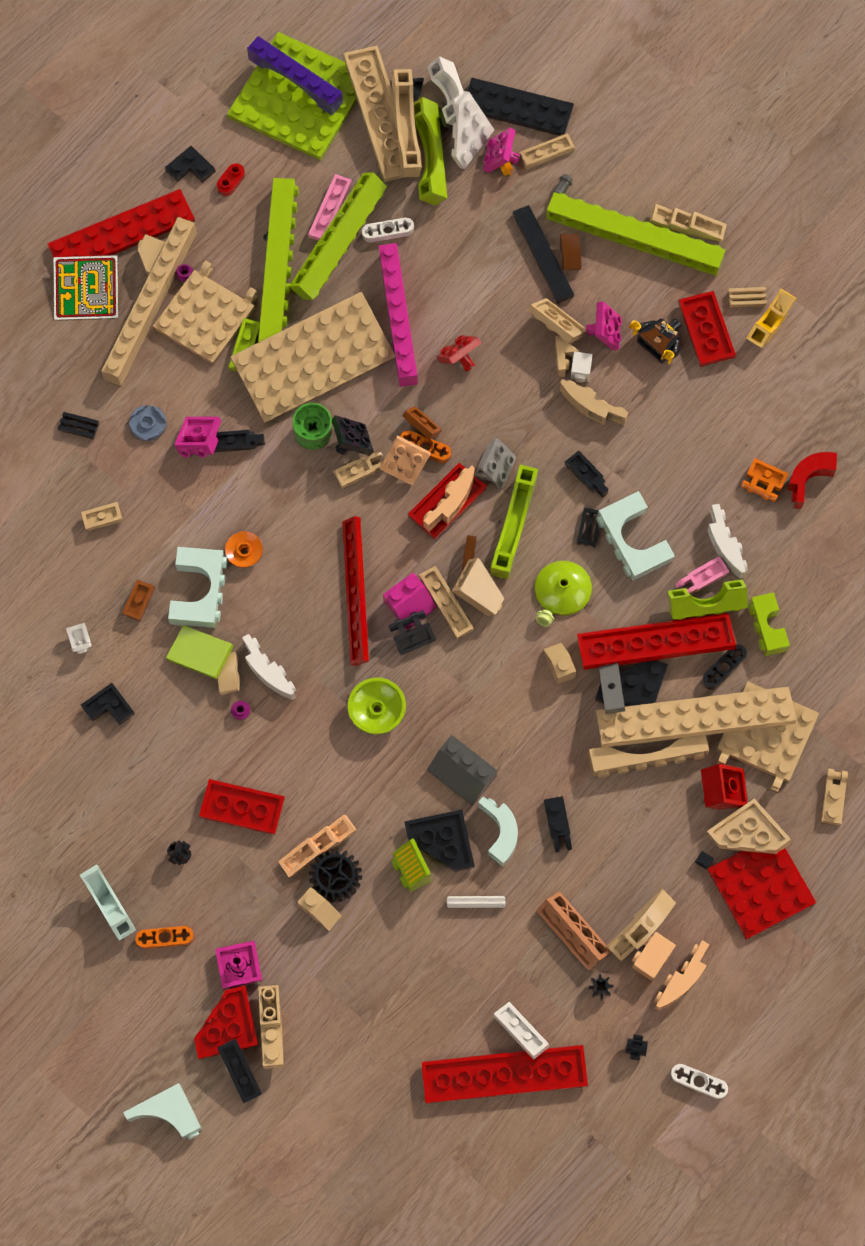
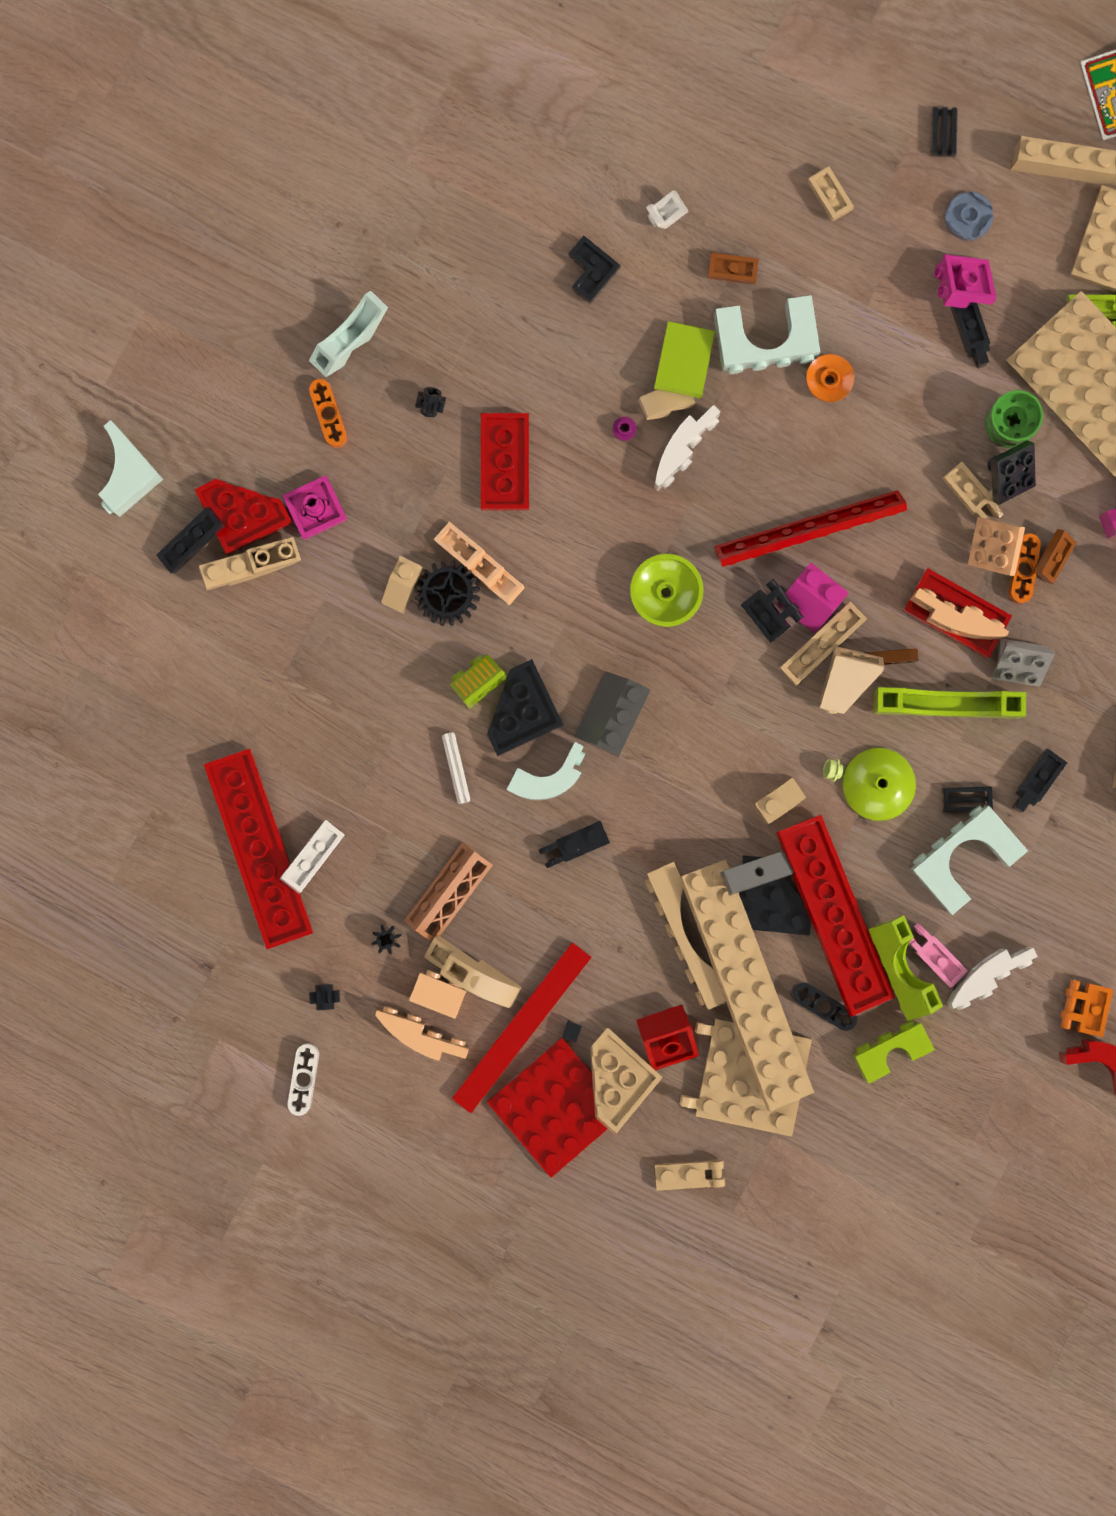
camera: 75 degrees right, 15 degrees up
(693, 899) = (521, 1027): none -> red tile

